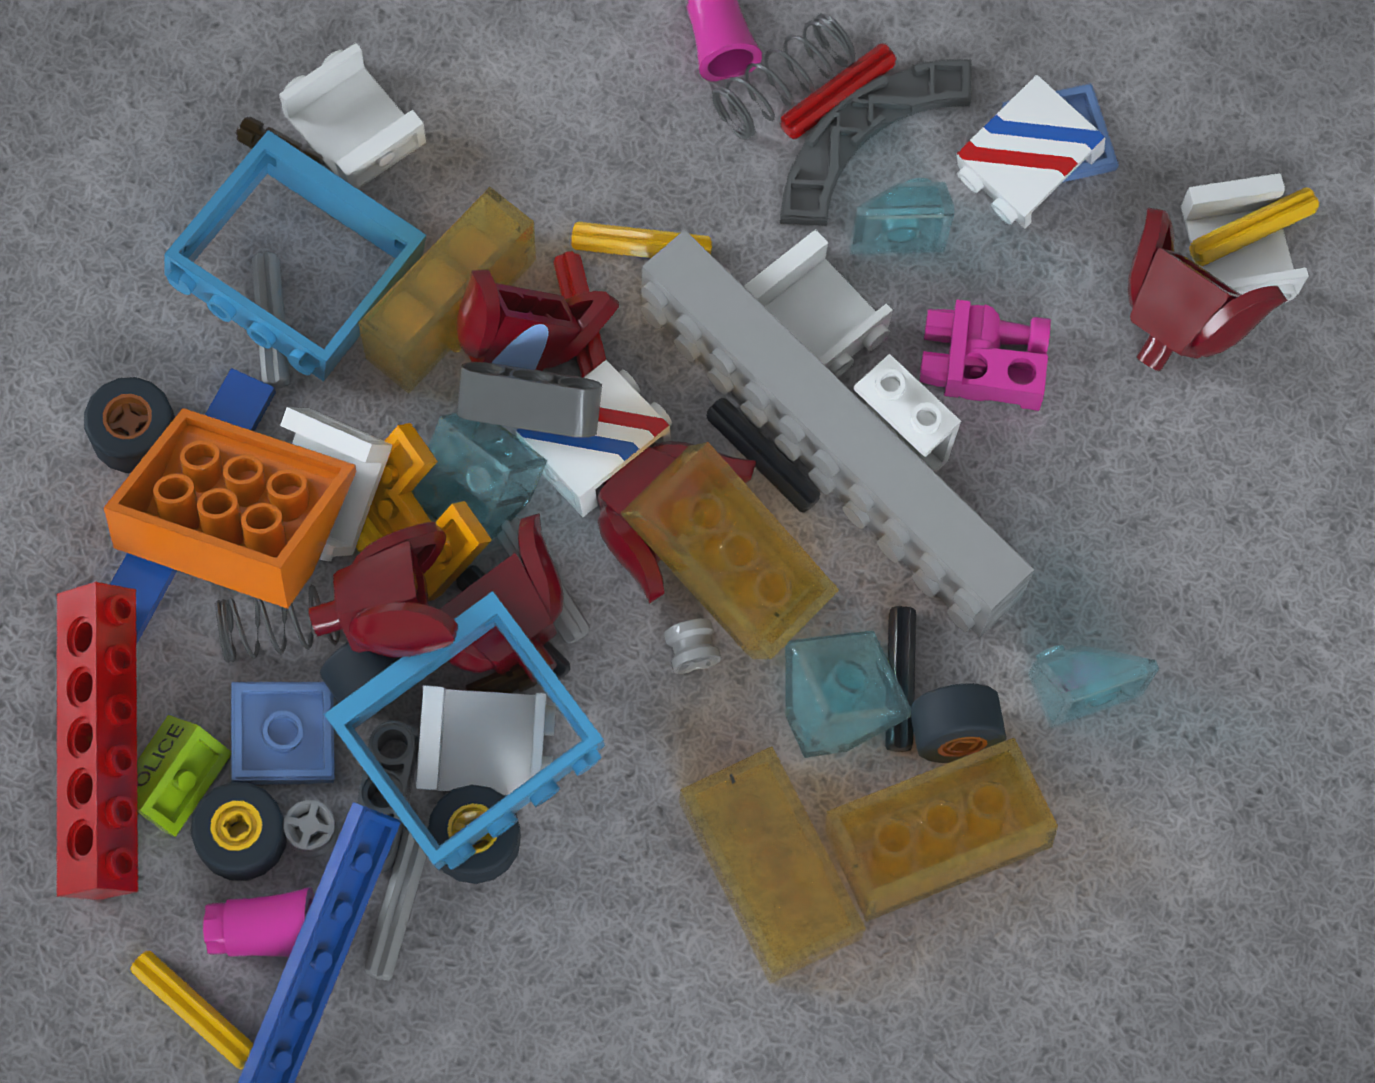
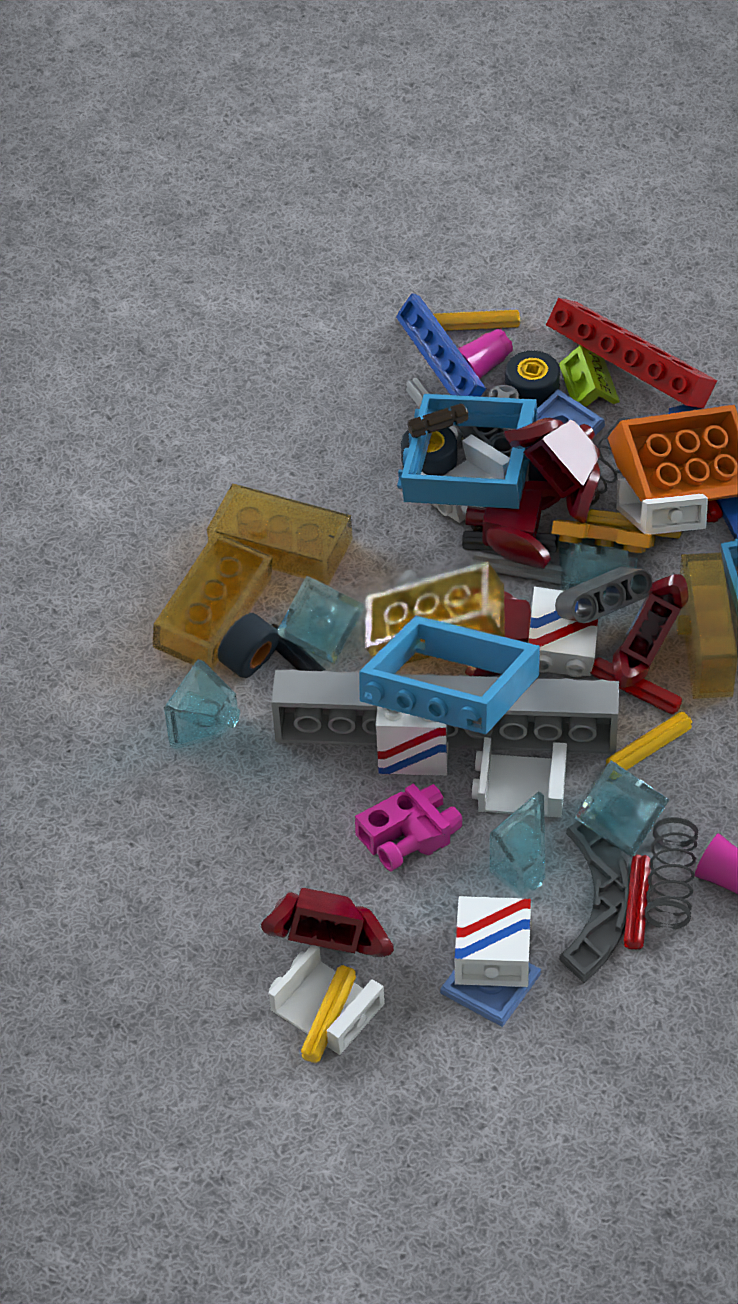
camera: 145 degrees right, 20 degrees down
(474, 784) = (437, 420): none -> dark brown axle
(755, 430) = (511, 658): none -> dark azure window
(763, 182) = (620, 808): none -> clear light blue slope

